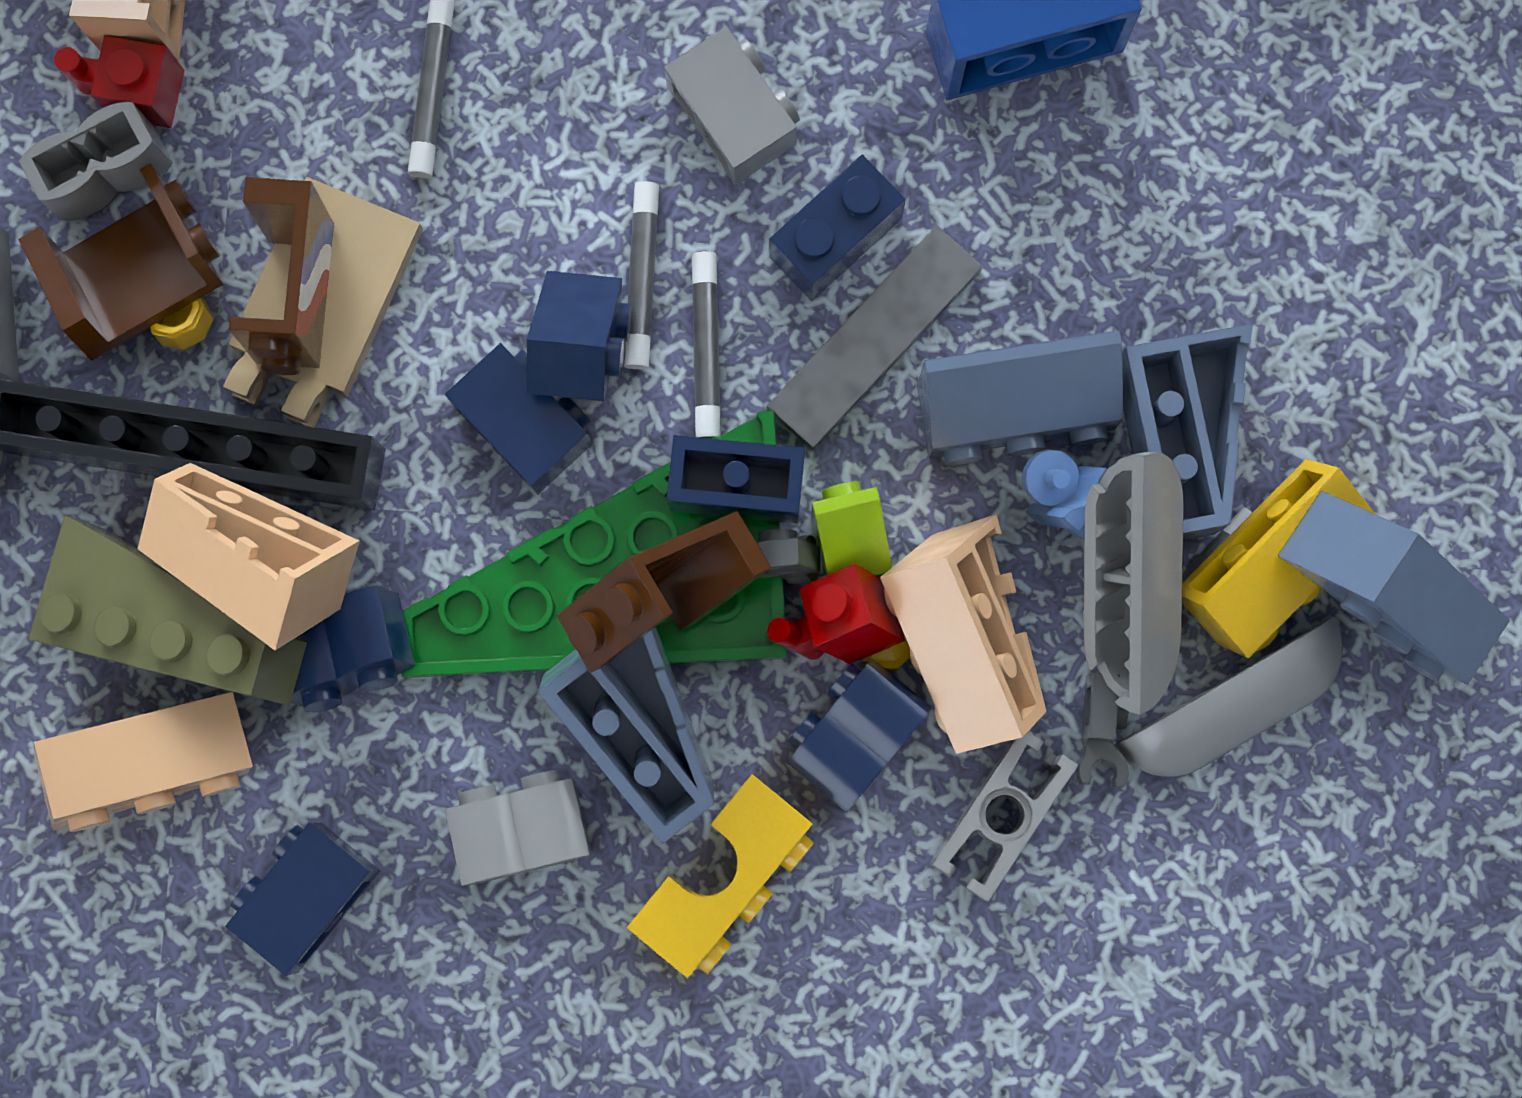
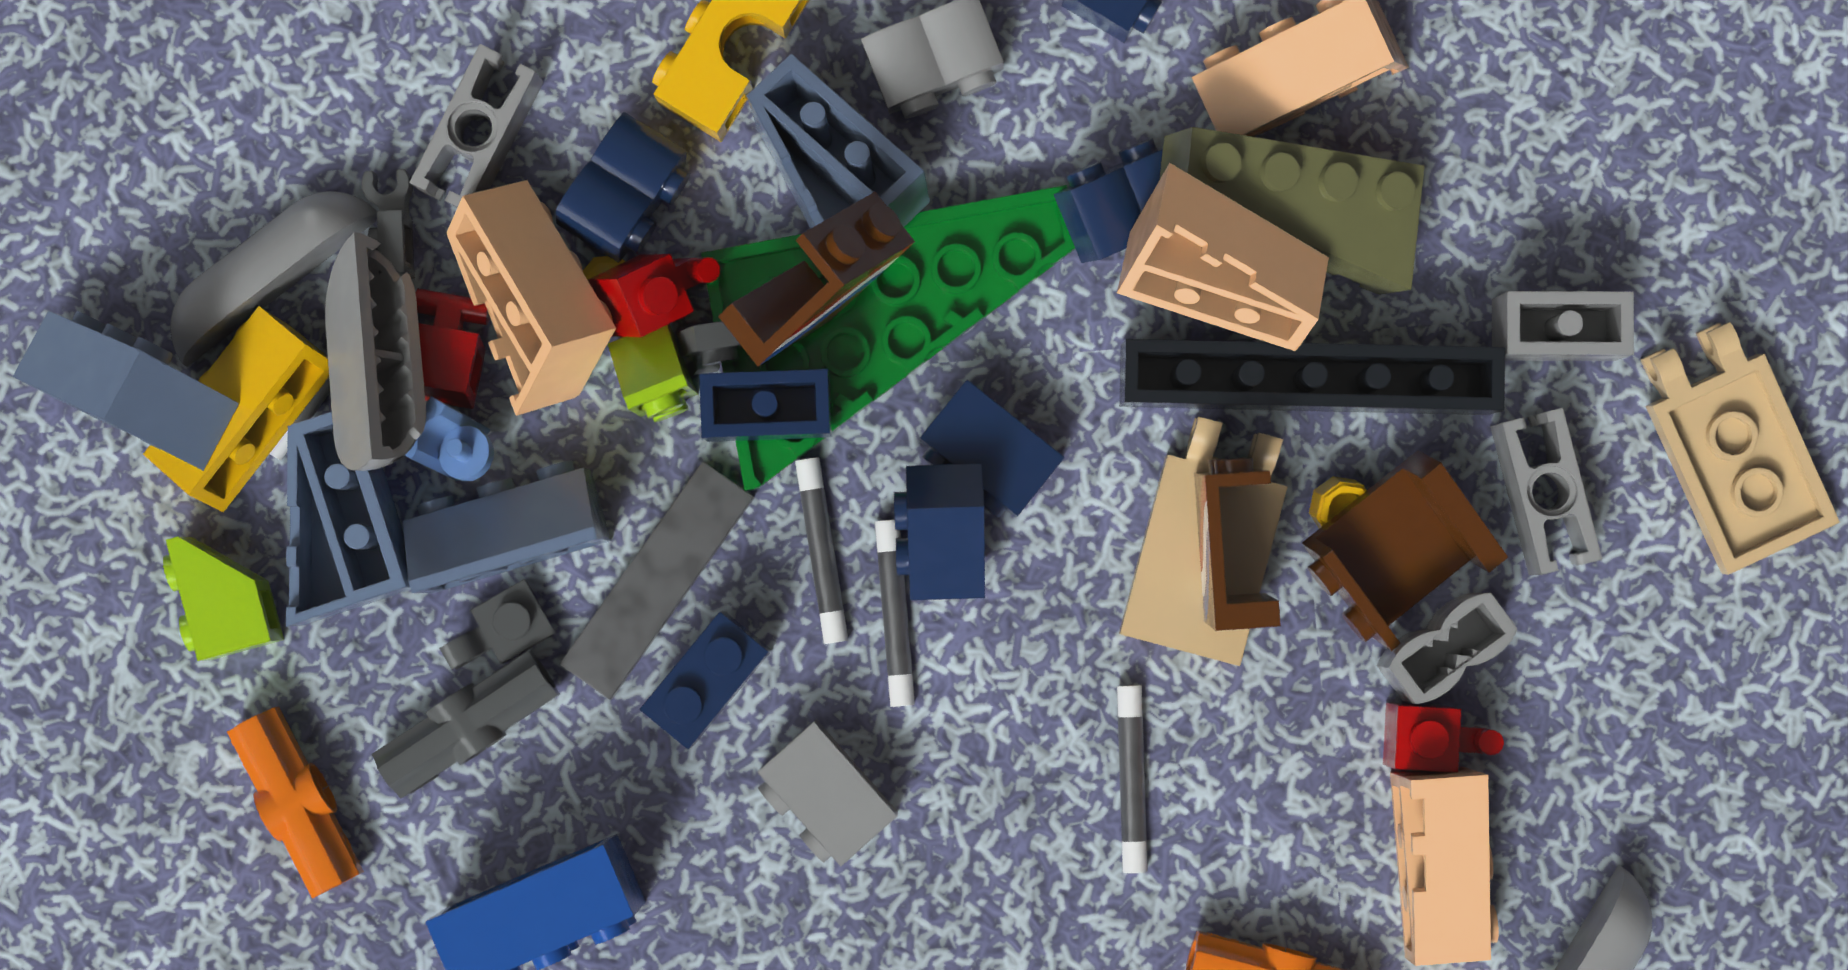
camera: 165 degrees right, 5 degrees up
(1032, 312) = (507, 625): none -> dark grey plate
(1057, 583) = (451, 356): none -> red brick
(1082, 218) = (465, 724): none -> dark grey piece
(1261, 165) = (294, 801): none -> orange piece
(1314, 370) = (222, 601): none -> lime slope

